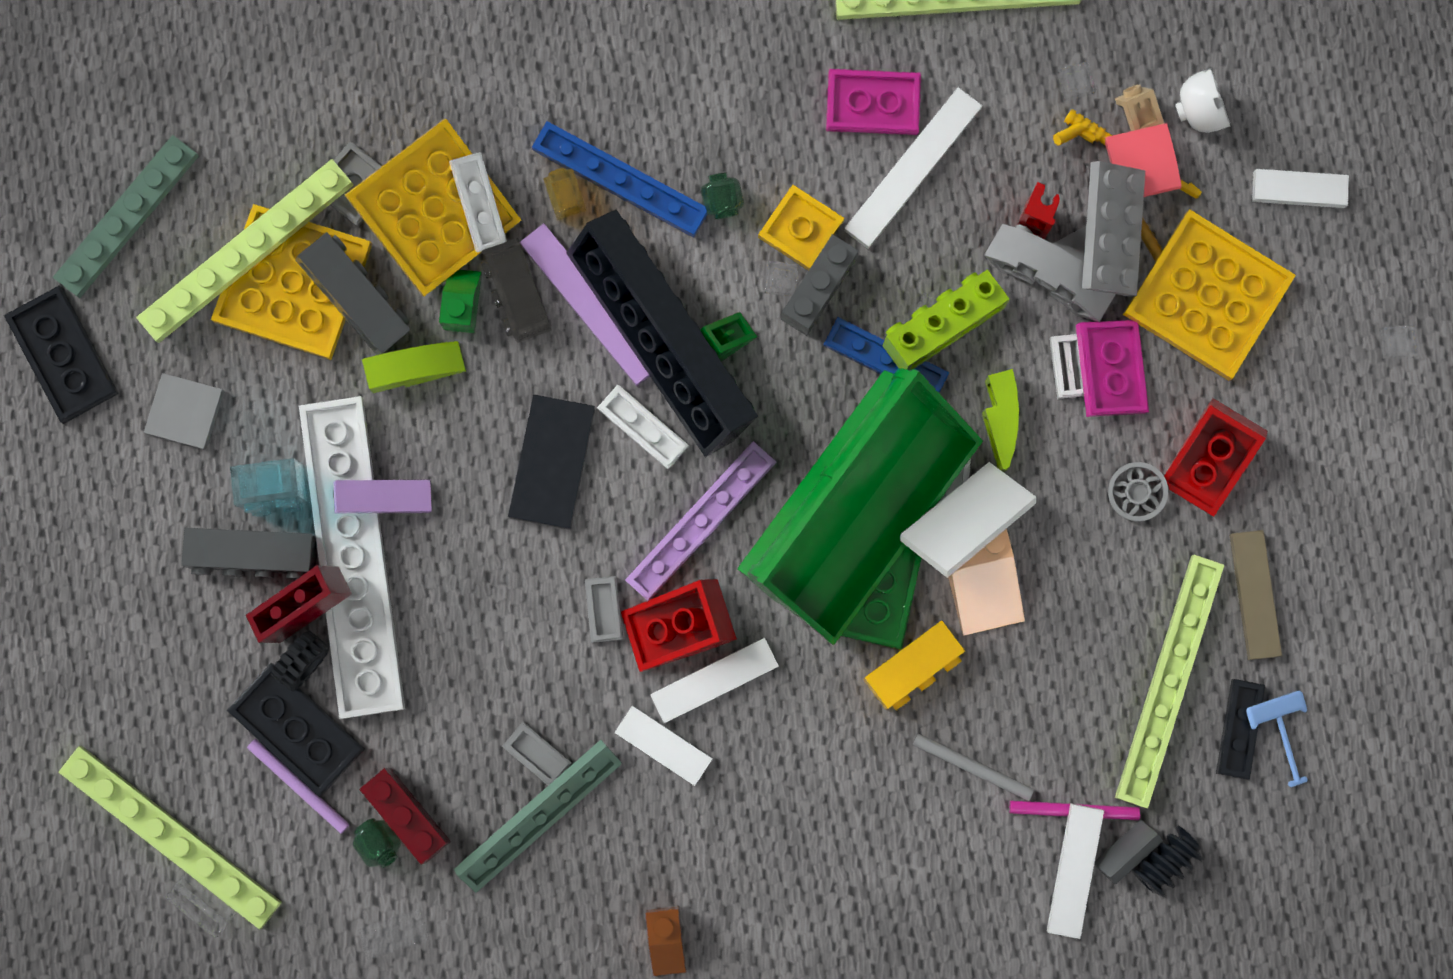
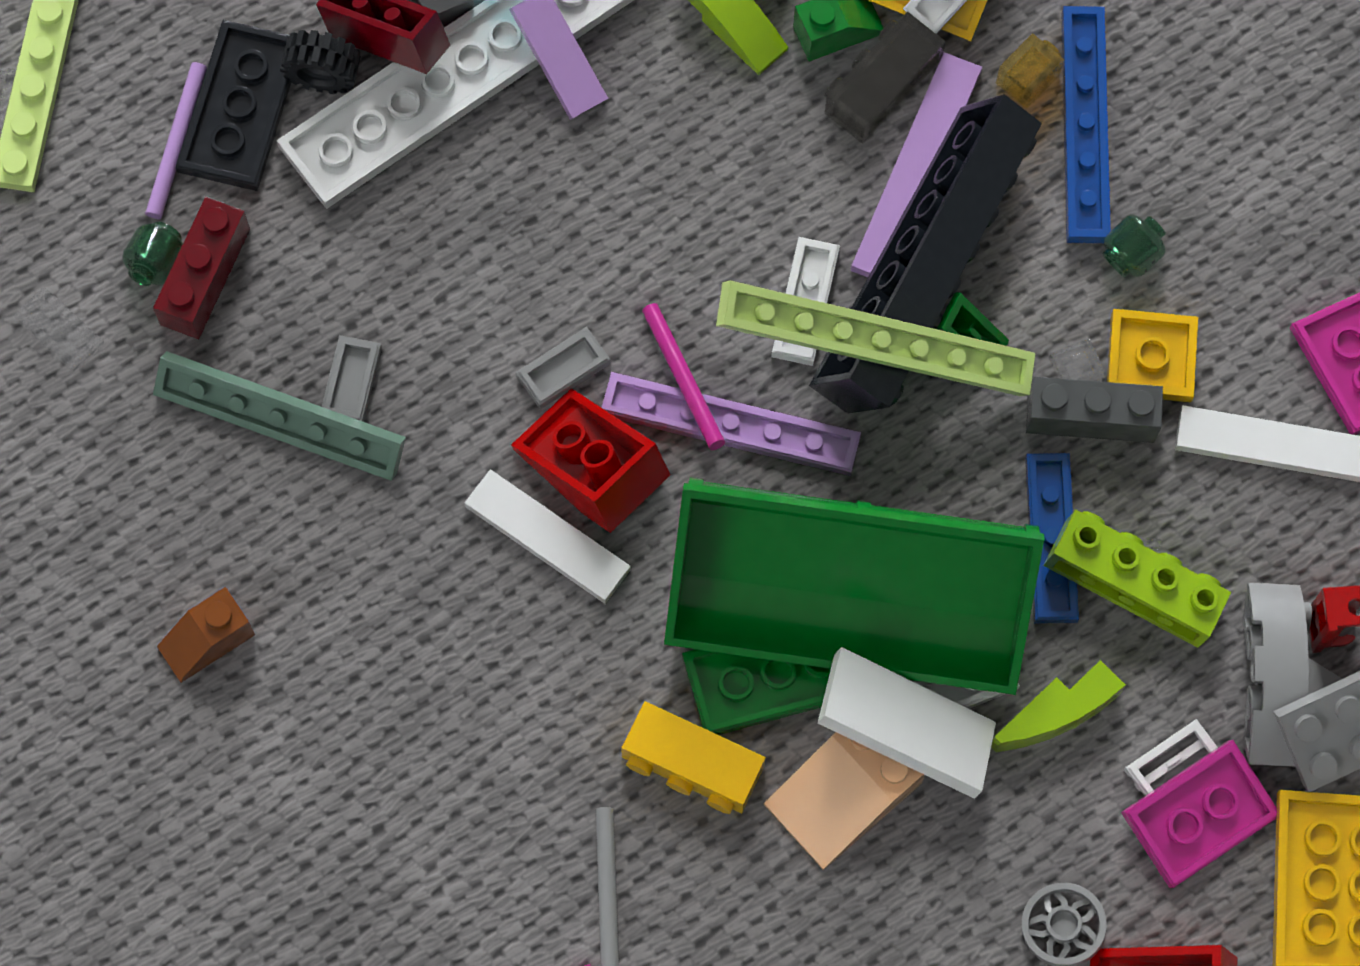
camera: 60 degrees right, 10 degrees down
(551, 462) = (705, 221): black tile -> none
(658, 535) = (683, 376): none -> dark pink bar
(663, 745) = (437, 517): white tile -> none
(714, 403) = (874, 338): none -> yellowish green plate

